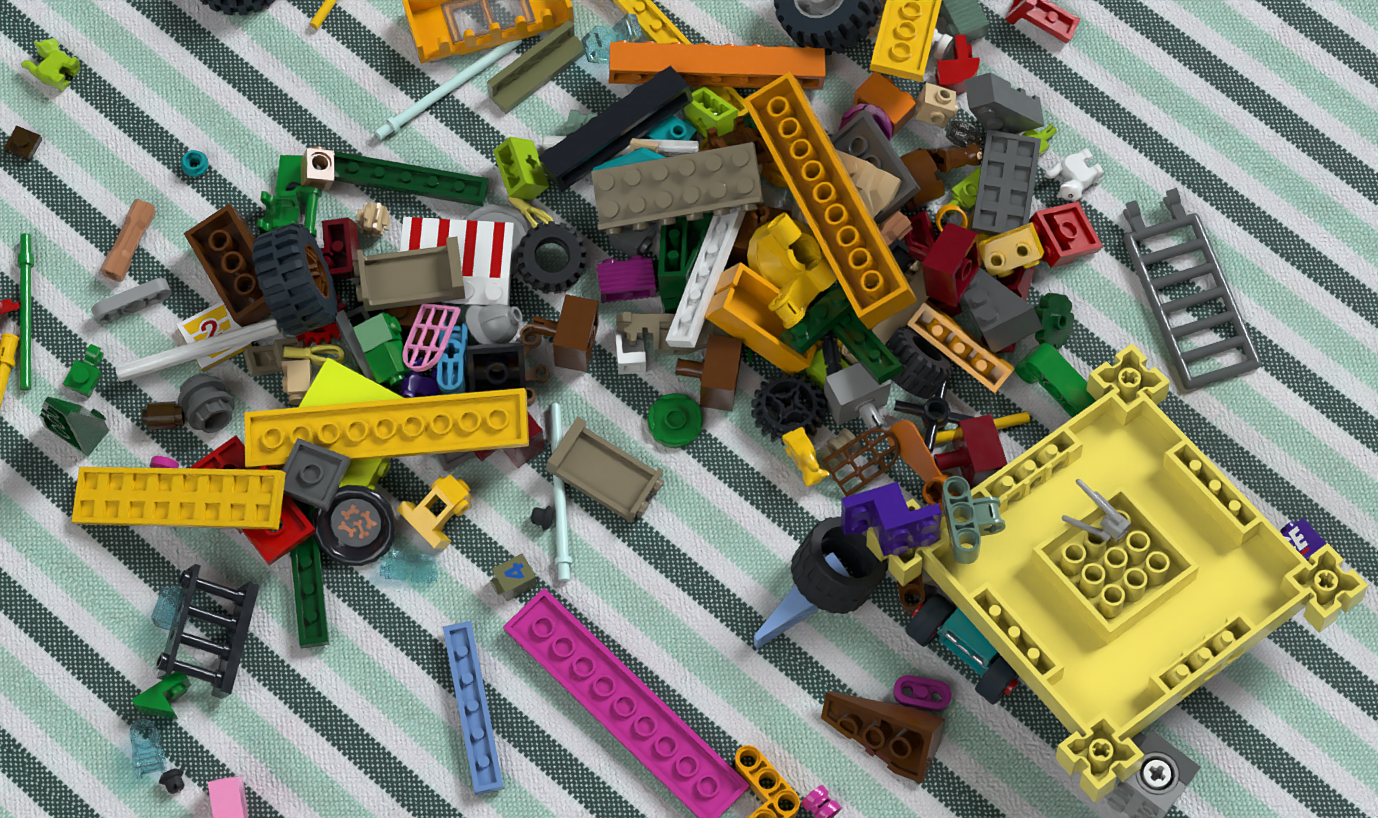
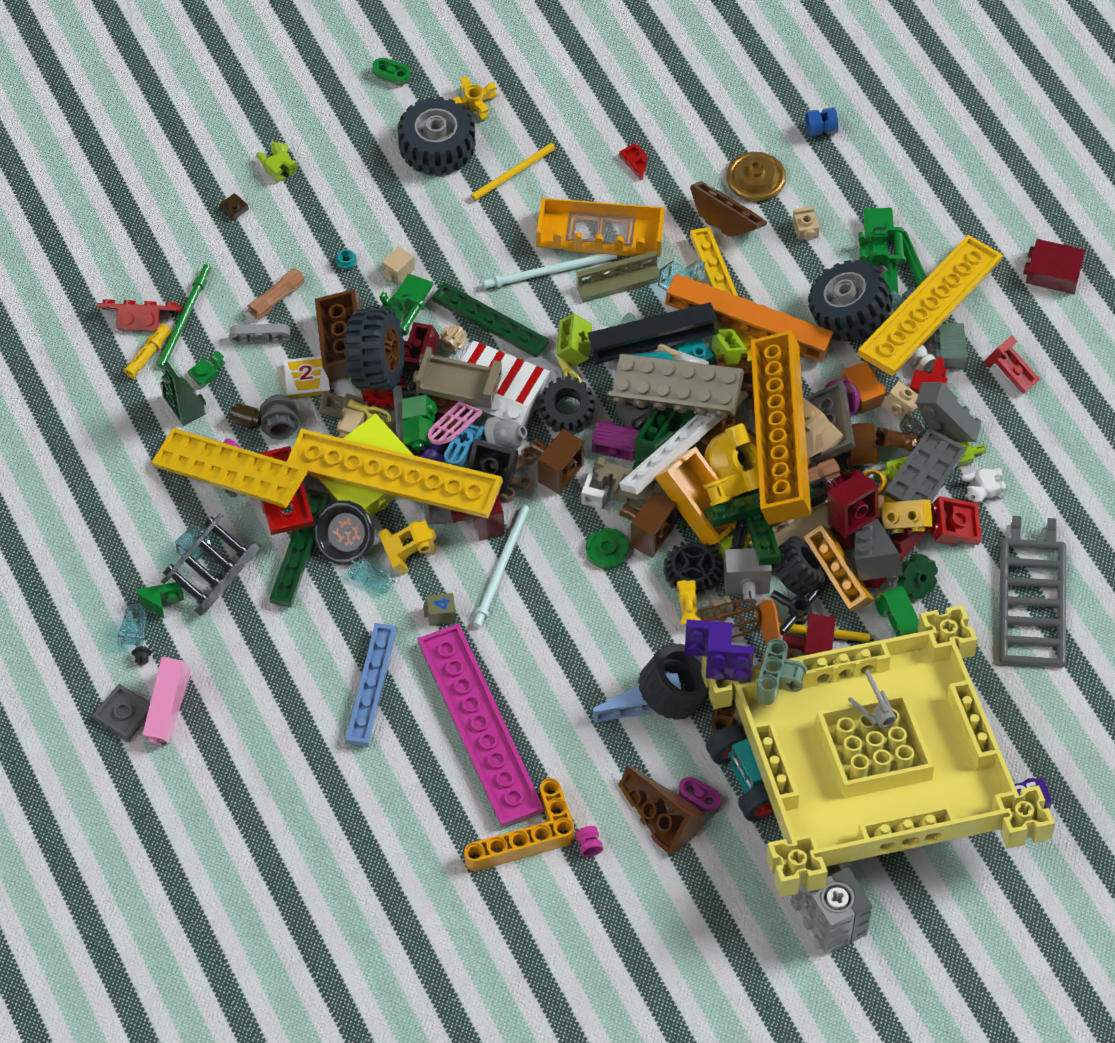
camera: 25 degrees right, 10 degrees down
(197, 349) = (289, 380): white axle -> none
(263, 148) = (398, 265): none -> tan brick
(314, 474) = (328, 484): dark grey tile -> none
(317, 178) = (428, 296): medium nougat brick -> none
(542, 517) = (480, 577): black piece -> none
(604, 472) = (538, 561): dark tan panel -> none

